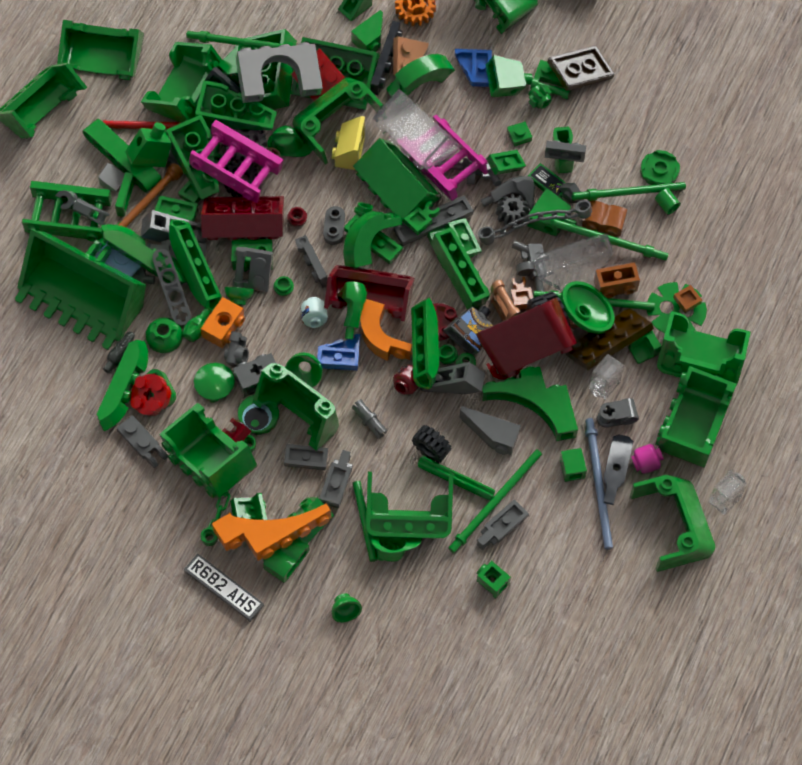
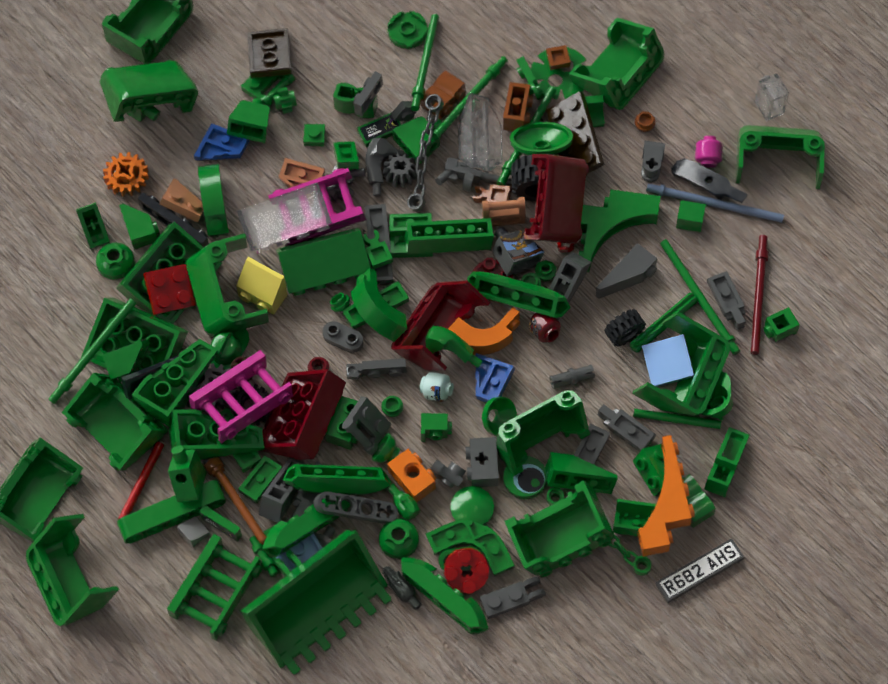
camera: 65 degrees left, 0 degrees up
(82, 207) = (224, 566): dark grey piece -> none
(186, 386) = (473, 534): none -> green plate
(239, 431) = (543, 498): dark red tile -> none
(272, 448) = (568, 470): none -> green slope
(275, 324) = (435, 426): none -> green brick
(300, 58) = (156, 291): light grey arch -> none
(337, 575) = (726, 462): none -> green slope
(338, 36) = (118, 268): none -> green piece
(345, 608) = (763, 464): green piece -> none
(416, 492) = (668, 361): none -> light blue tile
(473, 134) = (297, 173): none -> nougat wing
(559, 541) = (761, 258): none -> dark red bar
(606, 377) = (616, 152): clear brick -> none
(648, 288) = (525, 72): none -> green hinge
(656, 395) = (645, 121): none -> dark orange plate
(667, 201) = (448, 35): green beam -> none
(695, 416) = (685, 95): green windscreen -> none

